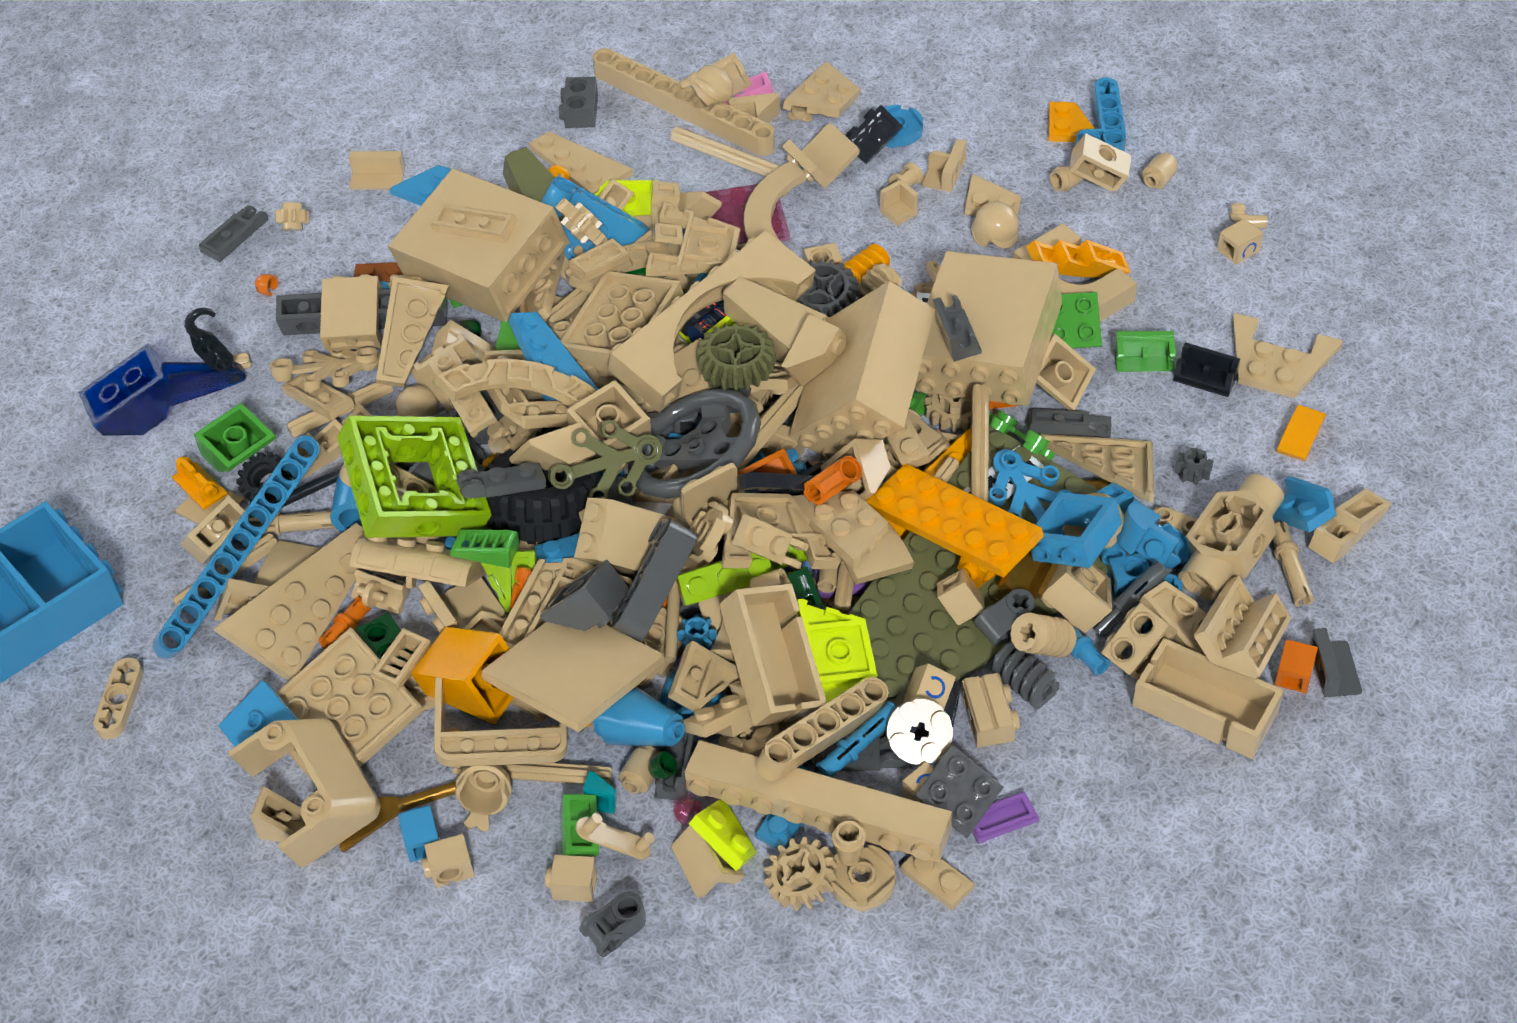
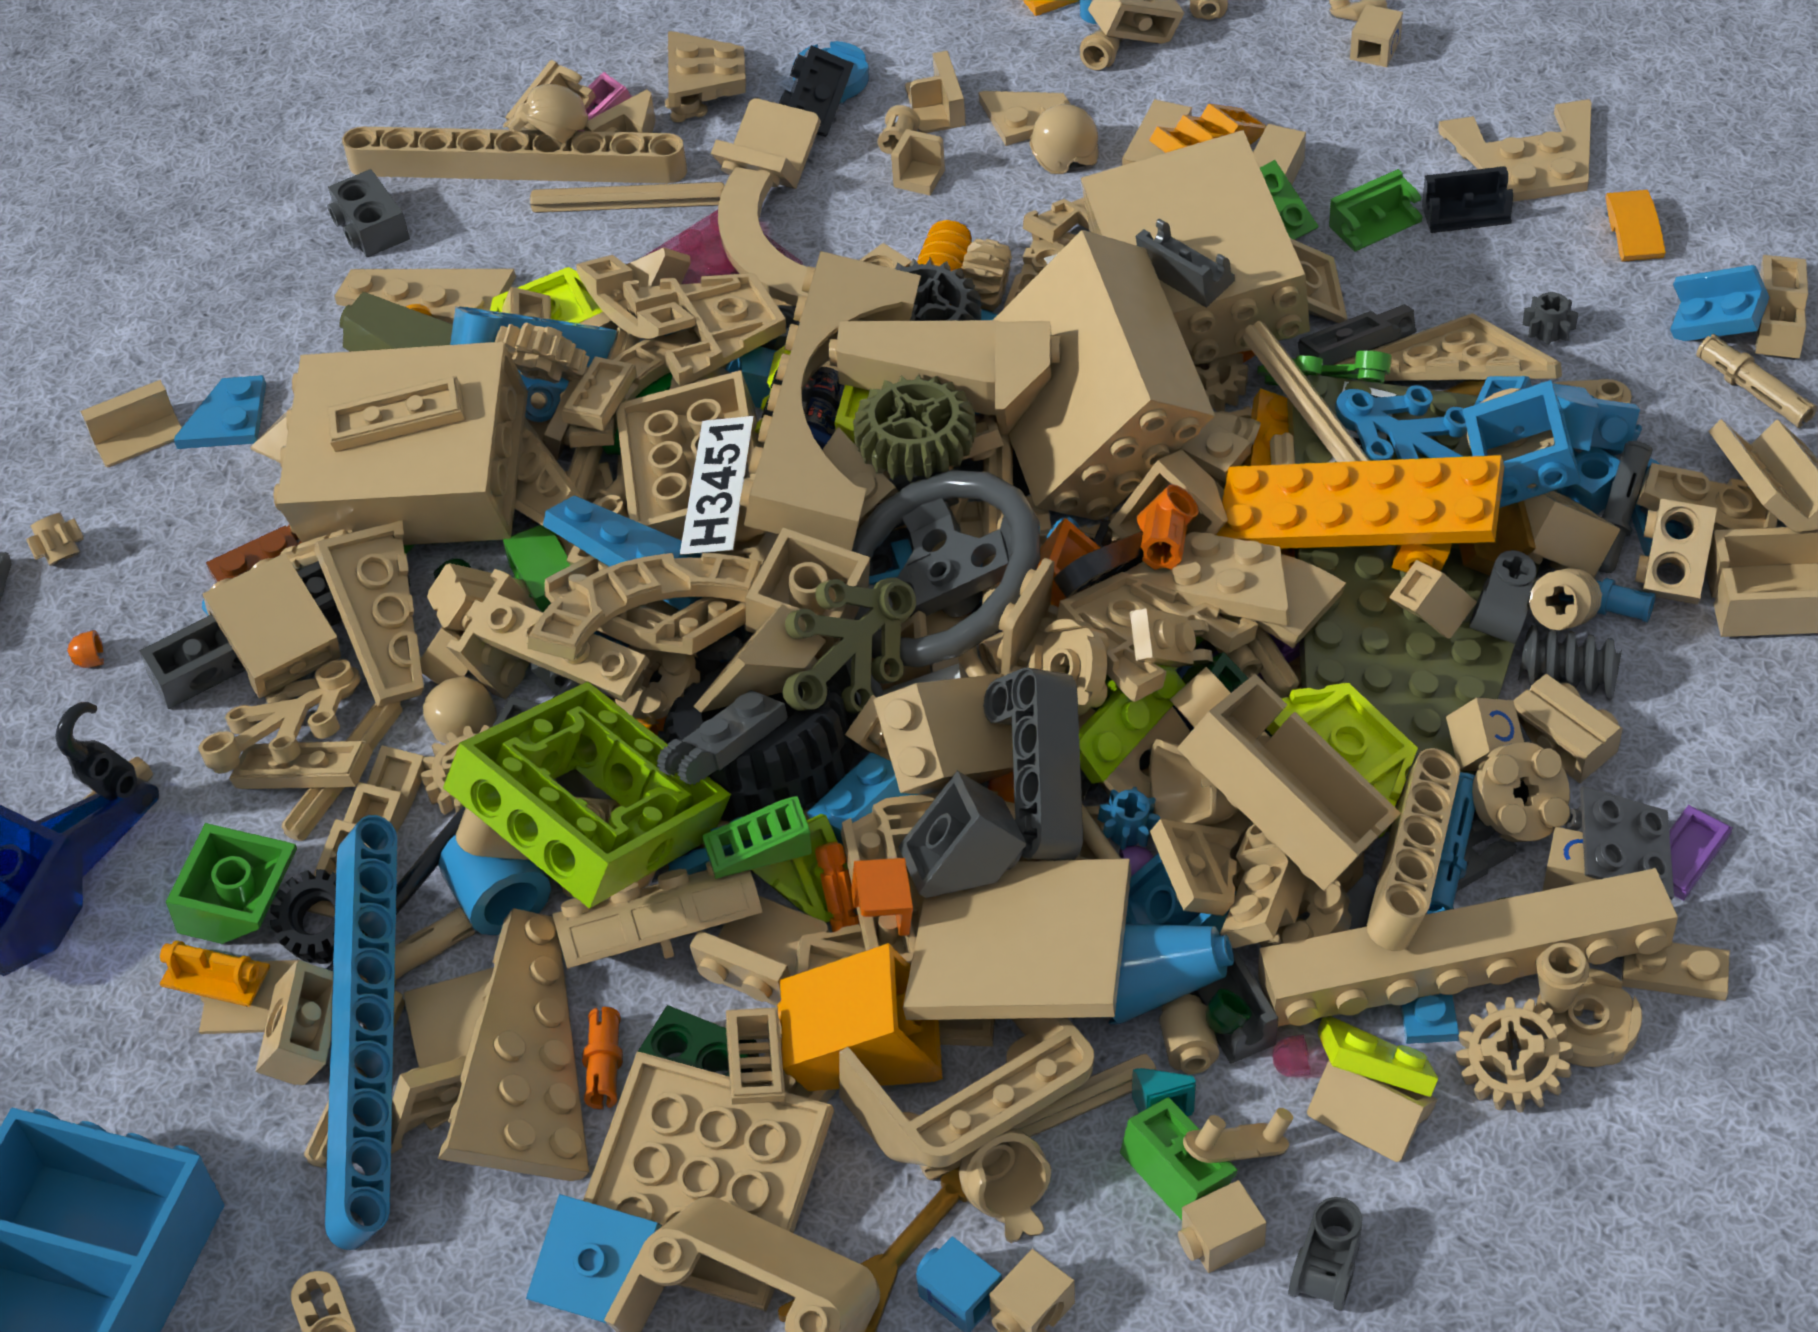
camera: 30 degrees left, 0 degrees up
(380, 591) = (621, 984): tan hips -> none
(521, 605) = (883, 890): none -> orange panel
(597, 358) = (717, 485): none -> white sticker
(1231, 535) = (1674, 375): tan brick -> none

